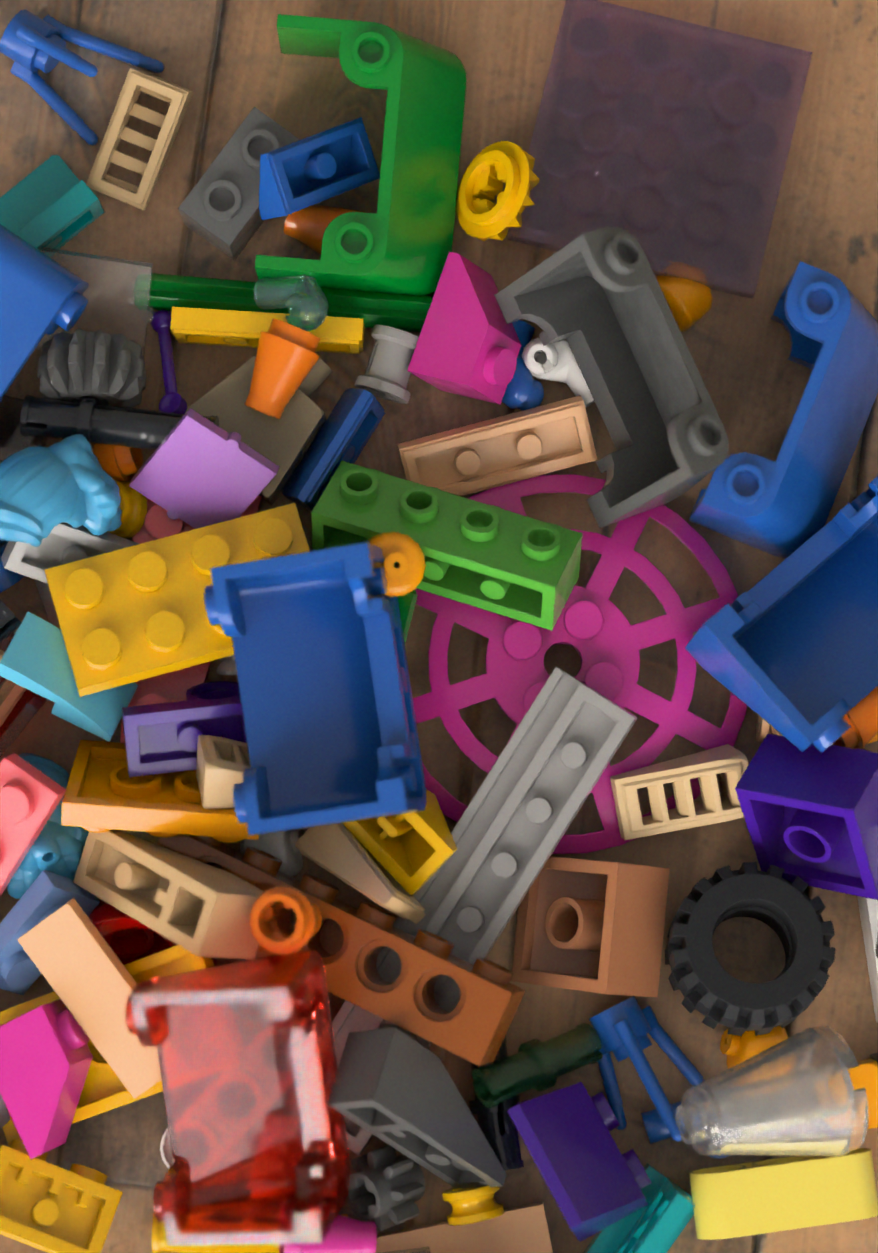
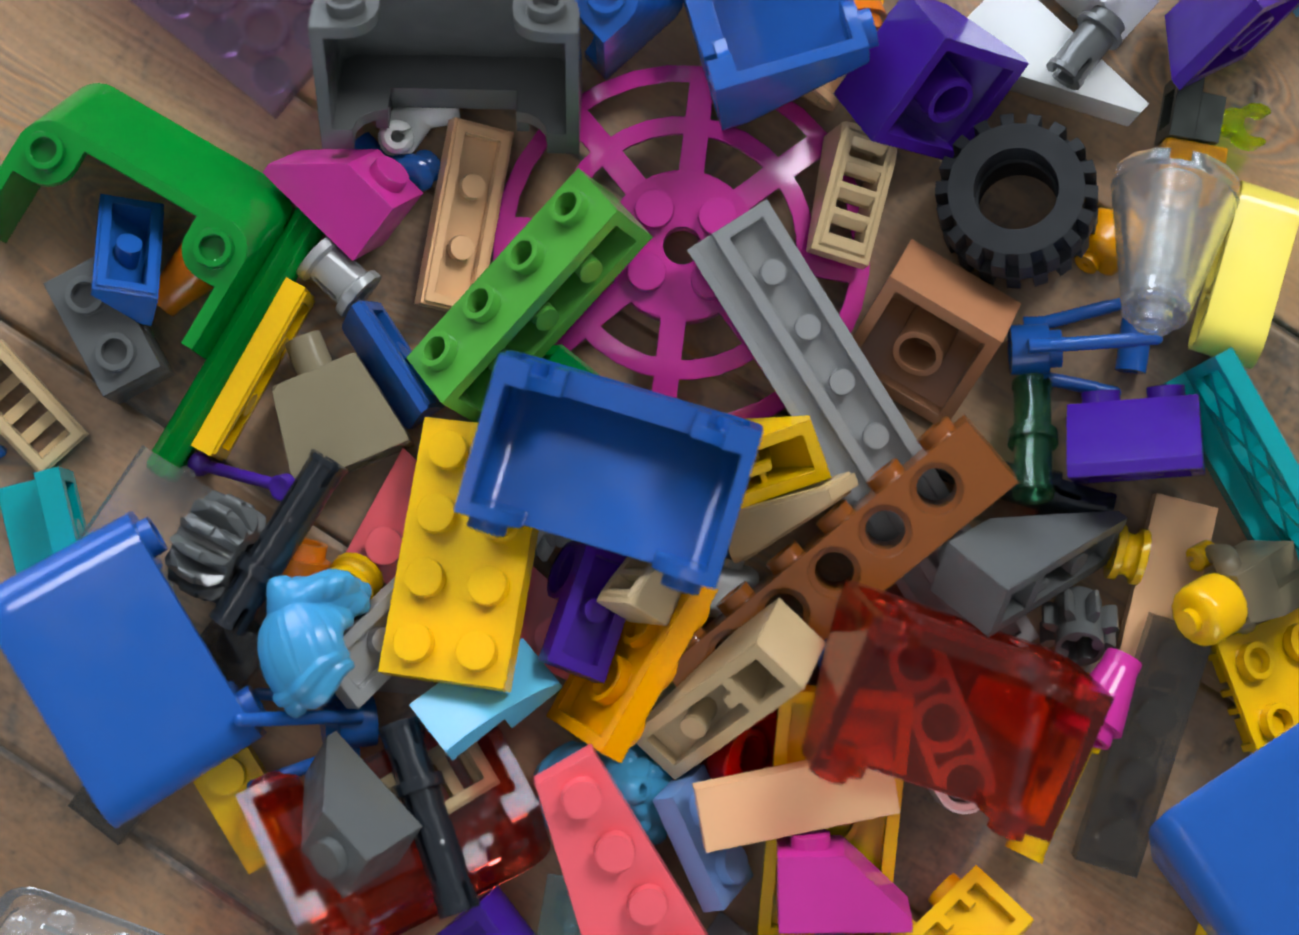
camera: 65 degrees left, 0 degrees up
(203, 473) = (358, 485): medium lavender piece -> none
(272, 920) = (806, 611): orange cone -> none
(280, 367) = (294, 369): orange cone -> none
(298, 294) = (238, 323): clear light blue arm -> none
(409, 561) = (528, 339): light orange piece -> none
(484, 180) = (213, 115): yellow gear -> none

